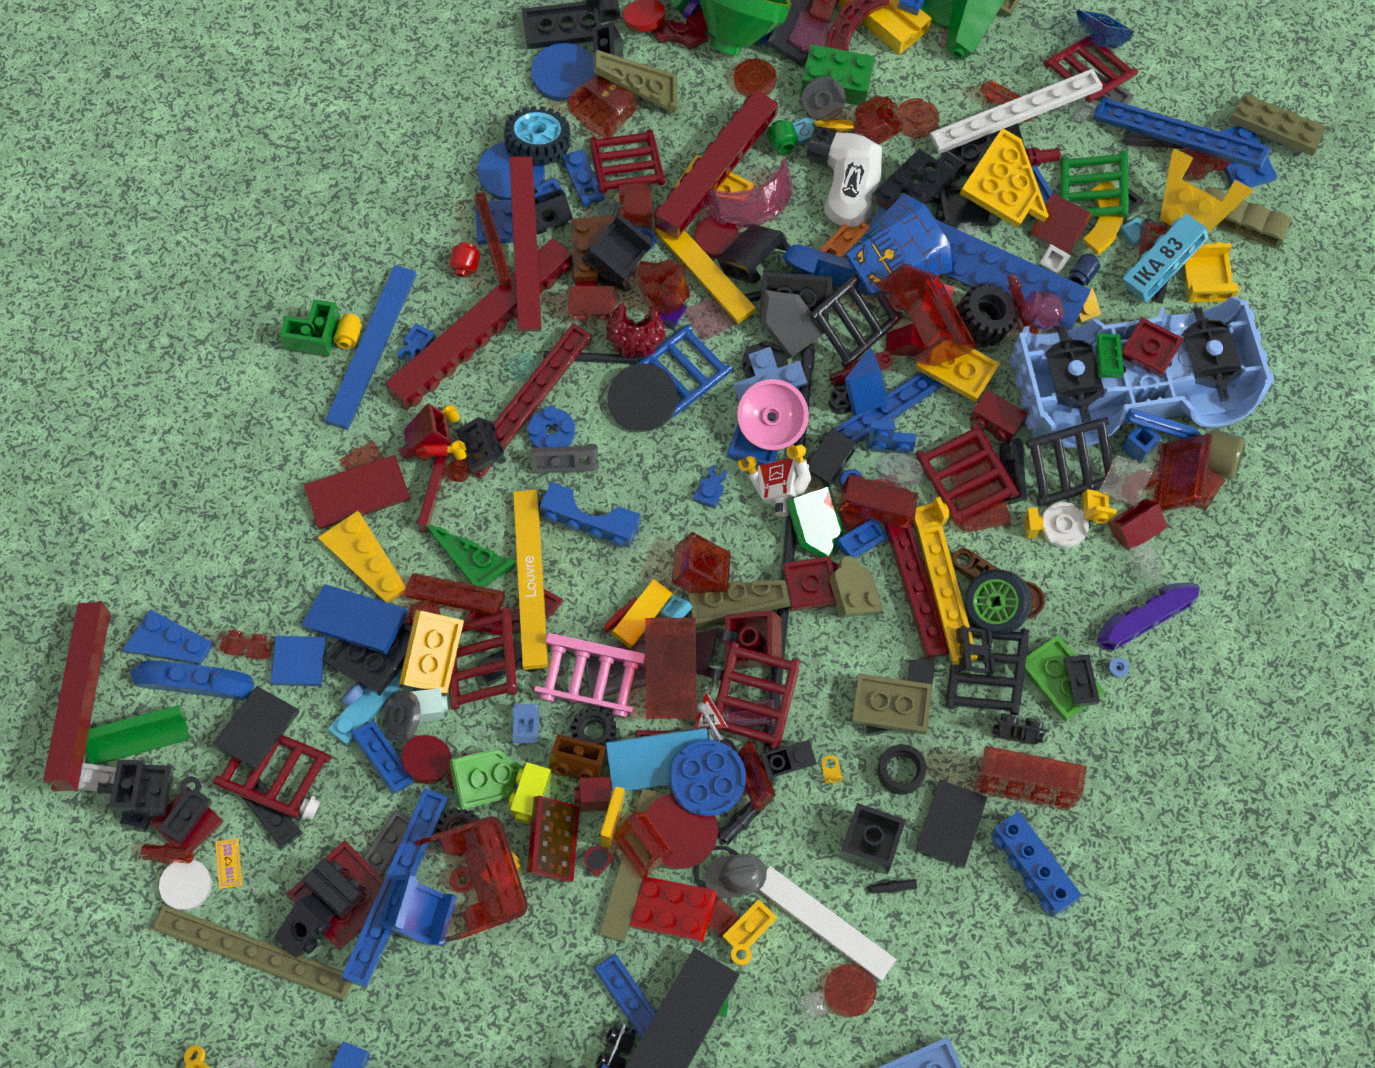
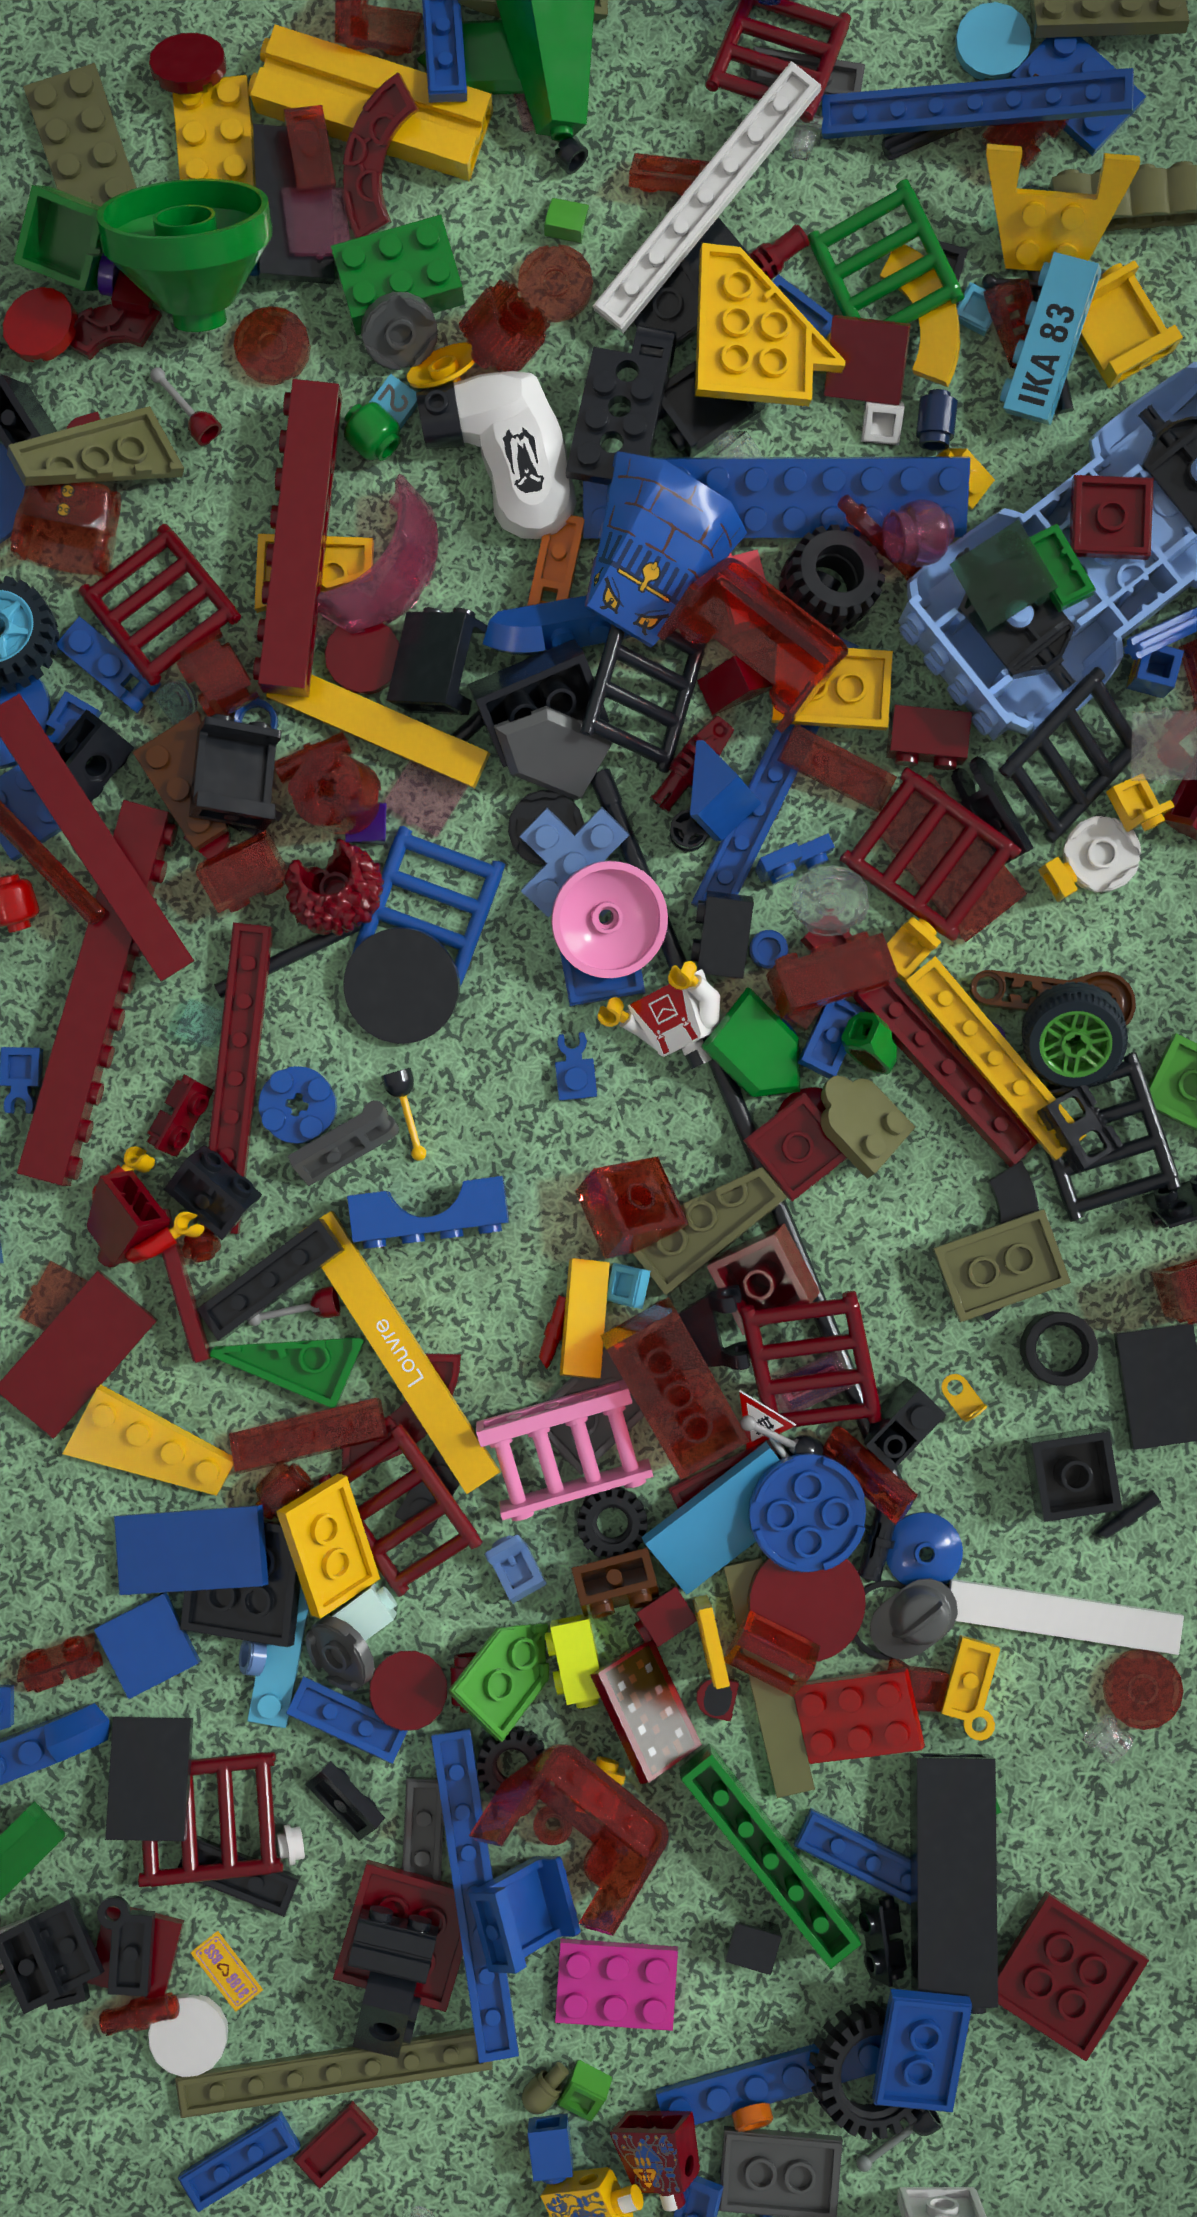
camera: 25 degrees left, 20 degrees up
(167, 973) = (239, 2161): none -> blue tile
(227, 995) = (335, 2144): none -> dark red tile
(354, 800) = (345, 1801): none -> black plate
(365, 1029) = (544, 2089): none -> olive cylinder
(388, 1045) = (585, 2091): none -> bright green slope
(444, 992) = (616, 1984): none -> dark pink plate
(483, 505) = (270, 1279): none -> black plate
(491, 402) = (173, 1131): none -> dark red hinge
(504, 534) = (323, 1304): none -> hinge
(537, 1008) = (753, 1946): none -> black panel
(576, 960) = (770, 1856): none -> green brick
(612, 446) = (400, 1085): none -> hinge
(698, 95) = (201, 425): none -> dark red hinge
(777, 845) = (922, 1531): none -> blue dish
(881, 552) = (870, 1042): none -> green rock
(938, 93) = (566, 220): none -> bright green slope
(938, 408) = (836, 768): none -> clear red tile
(957, 65) = (571, 155): none -> black hinge
(1077, 343) = (1004, 575): none -> clear green hinge
(1208, 113) = (992, 41): none -> medium azure tile

